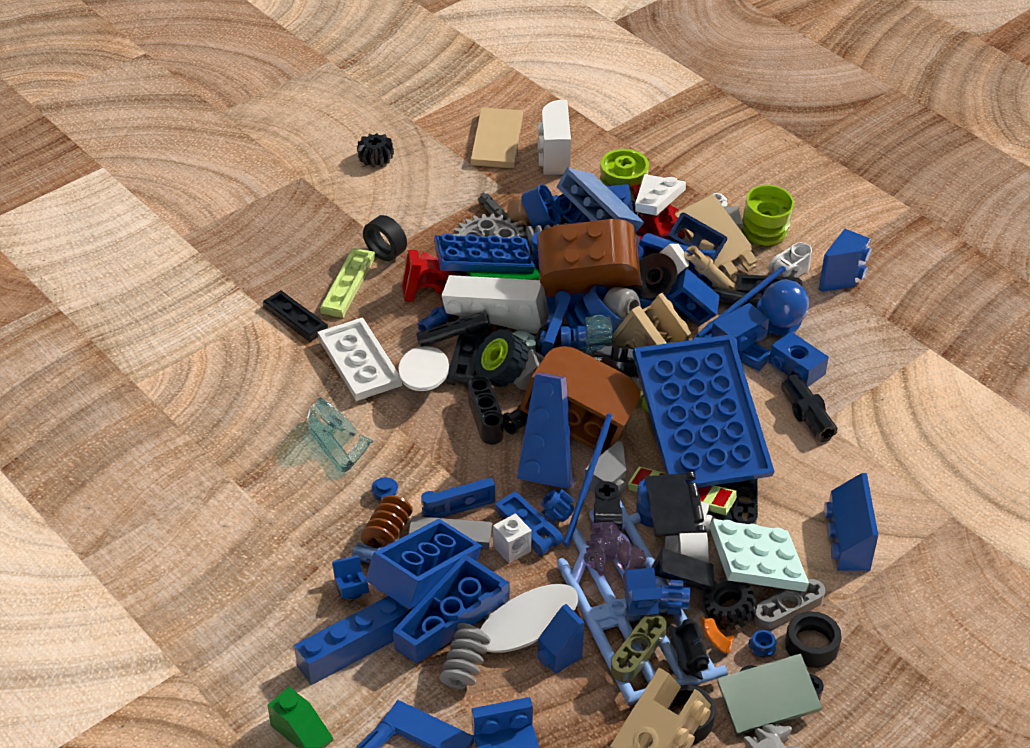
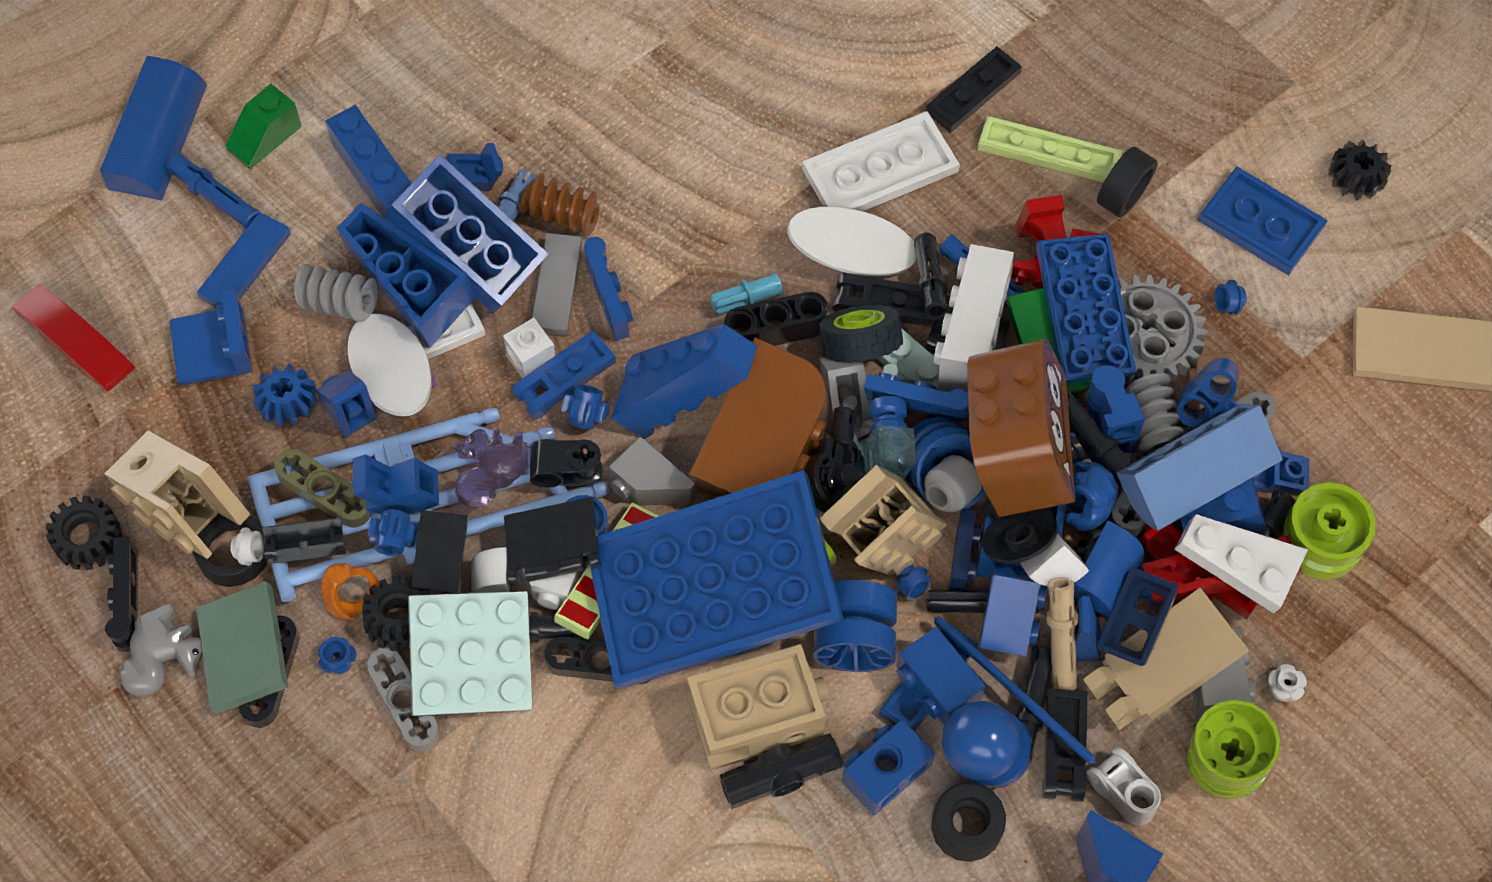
camera: 90 degrees right, 20 degrees up
(325, 437) = (747, 134): clear light blue piece -> none
(383, 487) = (634, 206): blue plate -> none
(406, 194) = (1262, 220): none -> blue tile
(461, 425) = (746, 293): none -> medium azure axle
(468, 211) = (1230, 297): none -> blue plate
(491, 206) = (1238, 337): dark grey axle -> none
(554, 138) = (1409, 422): white brick -> none
(554, 687) = (284, 395): none -> blue gear
(587, 480) = (614, 435): blue axle -> none
(695, 681) = (247, 546): none -> white plate
(781, 409) = (757, 706): none -> tan torso
(817, 622) = (324, 692): black tyre -> none
(826, 326) = (973, 797): none -> black tyre
(852, 525) = (523, 794): blue slope -> none

